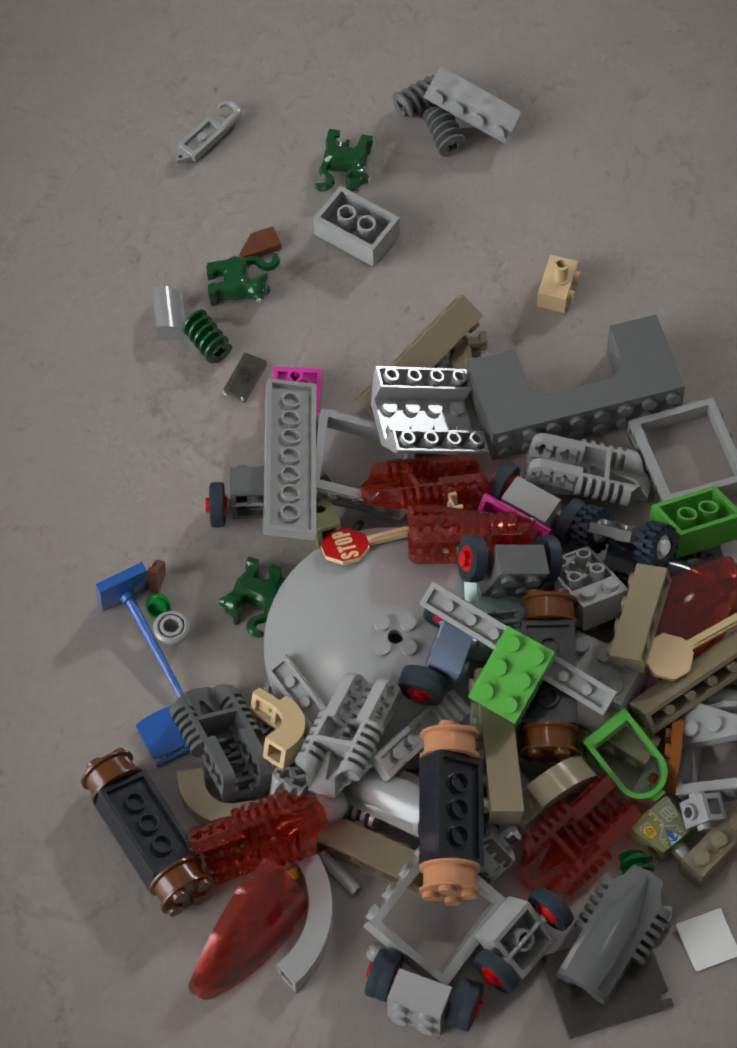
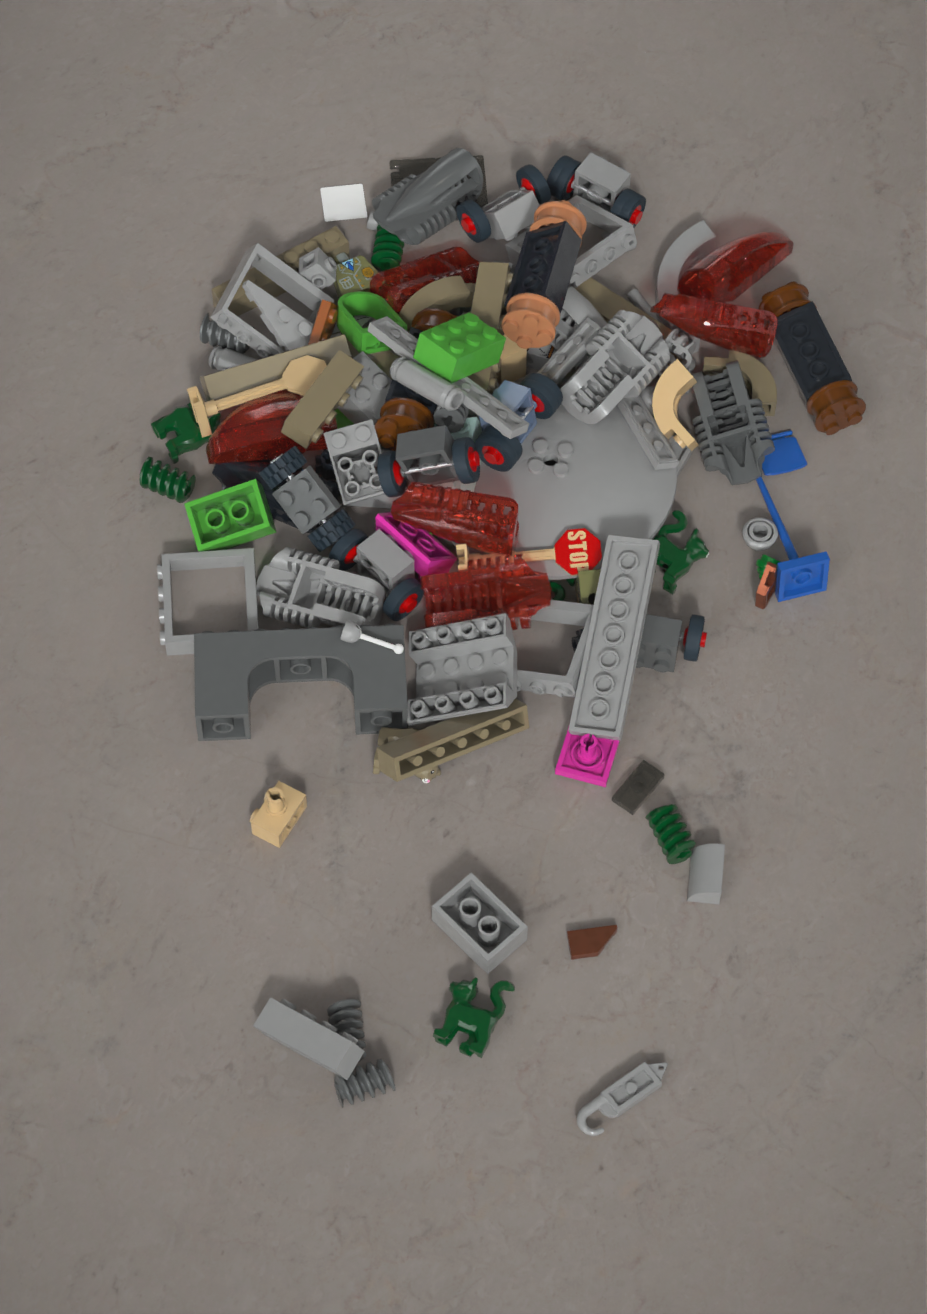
camera: 170 degrees left, 0 degrees up
(236, 282) = (626, 902): dark green animal -> none
(535, 626) = (426, 383): none -> light grey axle
(536, 408) = (353, 632): none -> hinge

